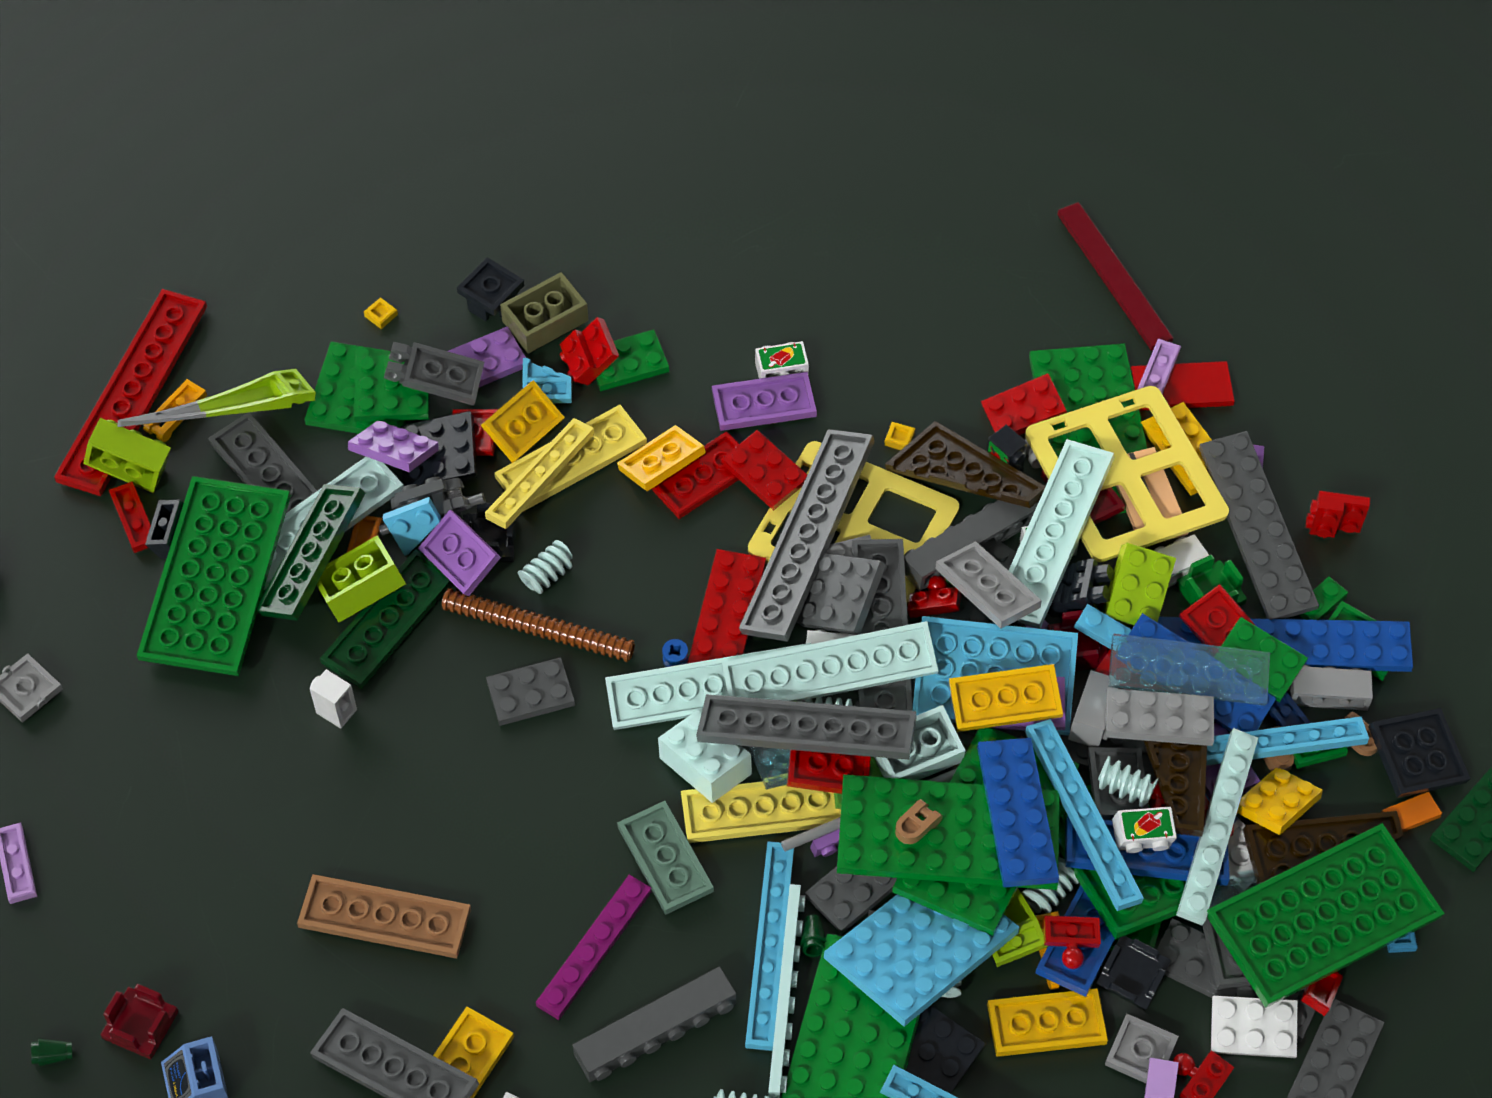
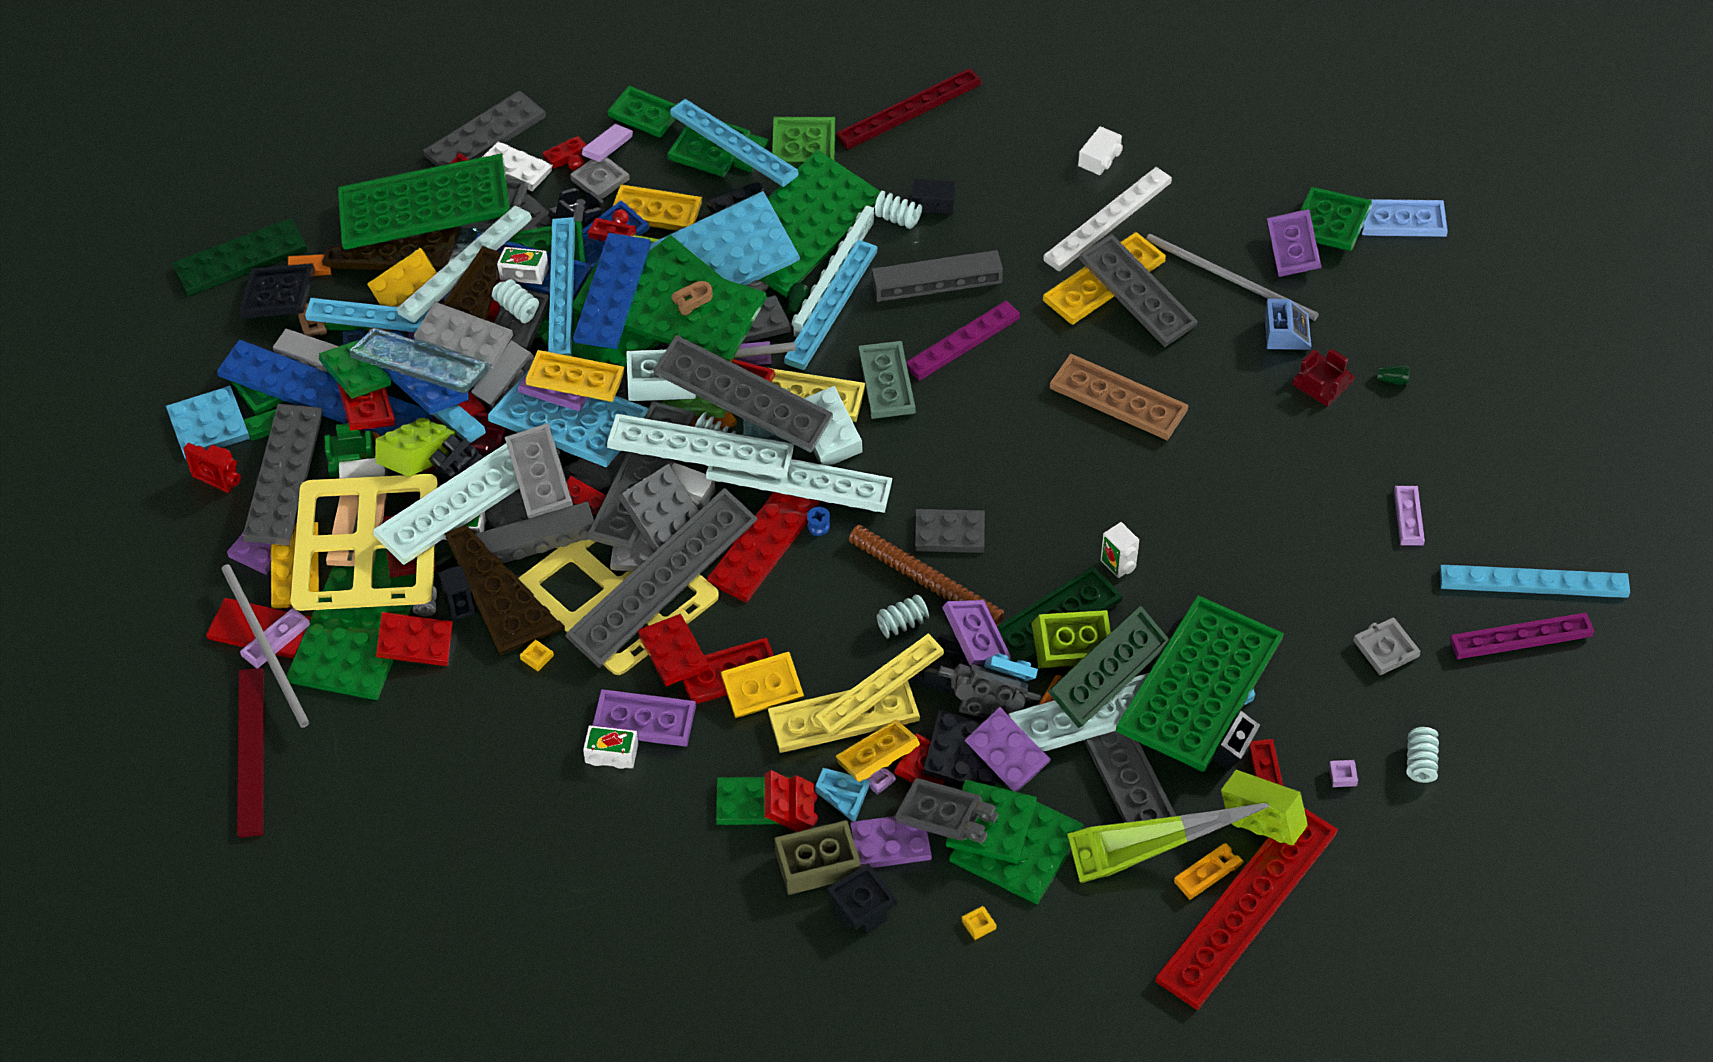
camera: 160 degrees left, 5 degrees down
(55, 538) = (1343, 773): none -> lavender plate
(1161, 353) = (265, 646): none -> light grey piece
(1386, 582) = (208, 420): none -> medium azure plate

